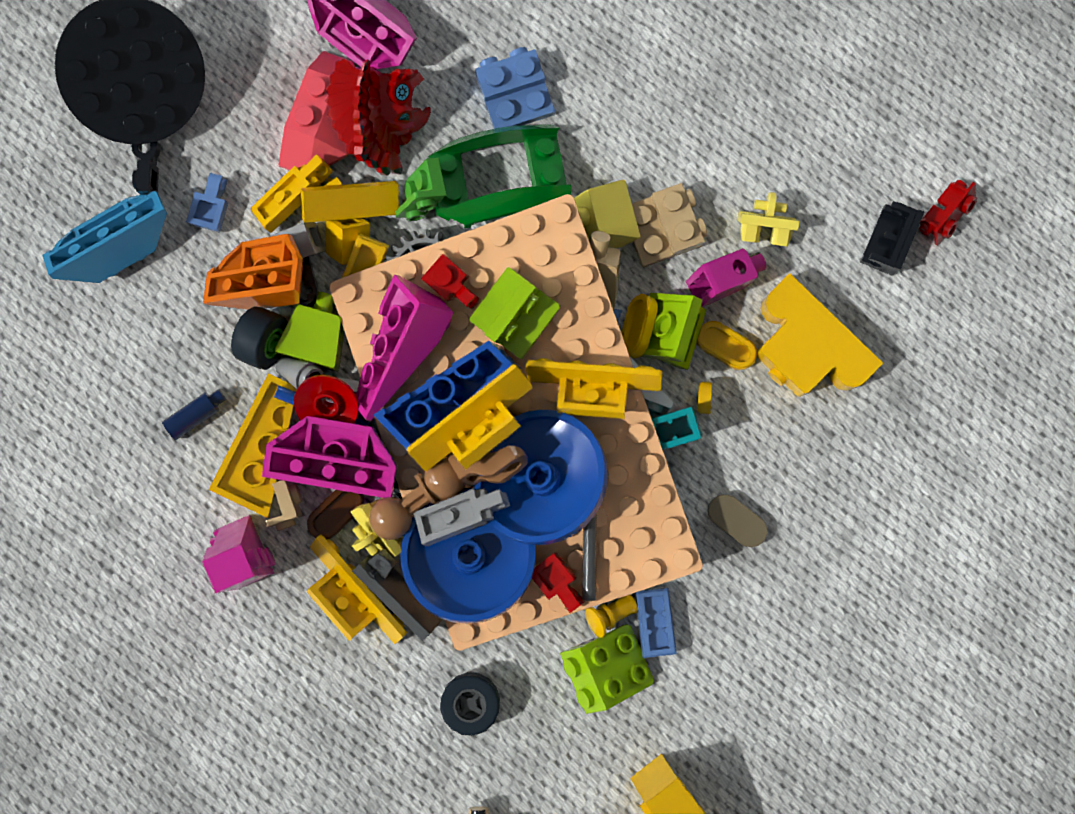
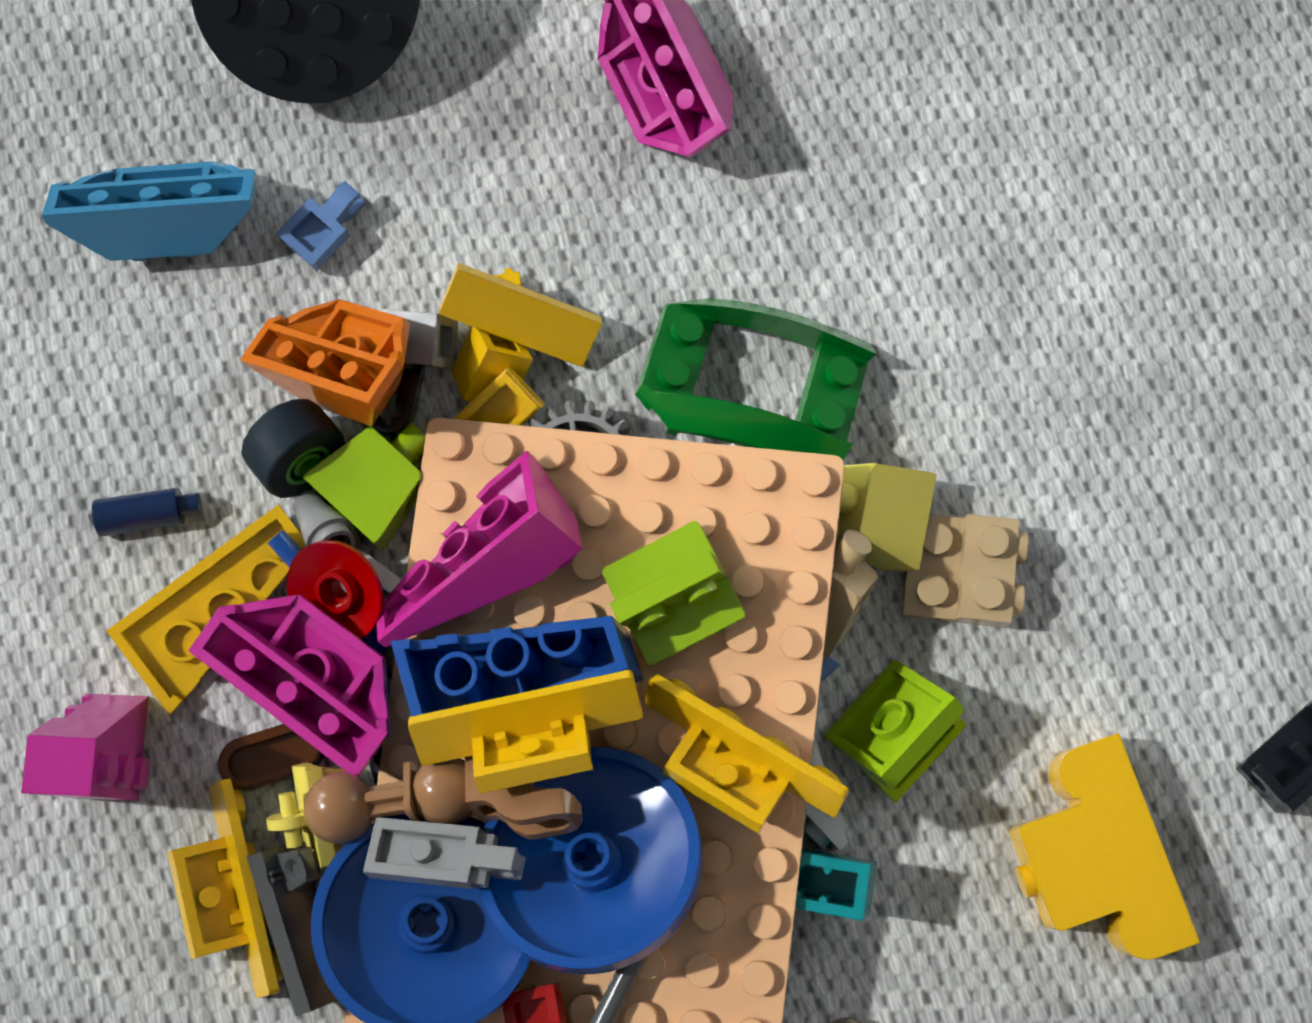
camera: 30 degrees right, 5 degrees down
(147, 173) = (256, 143): black plate -> none
(286, 194) = (432, 262): yellow hinge -> none
(288, 499) = (211, 704): tan bracket -> none
(308, 125) = (545, 176): coral wedge -> none
(374, 112) = (619, 206): red piece -> none
(422, 190) = (631, 350): bright green bracket -> none
(449, 280) = (599, 498): red plate -> none
(514, 89) = (839, 268): medium blue plate -> none
(639, 324) = (853, 699): yellow tile -> none
(704, 397) = (899, 858): yellow tile -> none
(725, 276) = (1019, 690): dark pink torso -> none
(726, 345) = (972, 795): yellow tile -> none
(781, 226) = (1140, 655): light yellow hips -> none

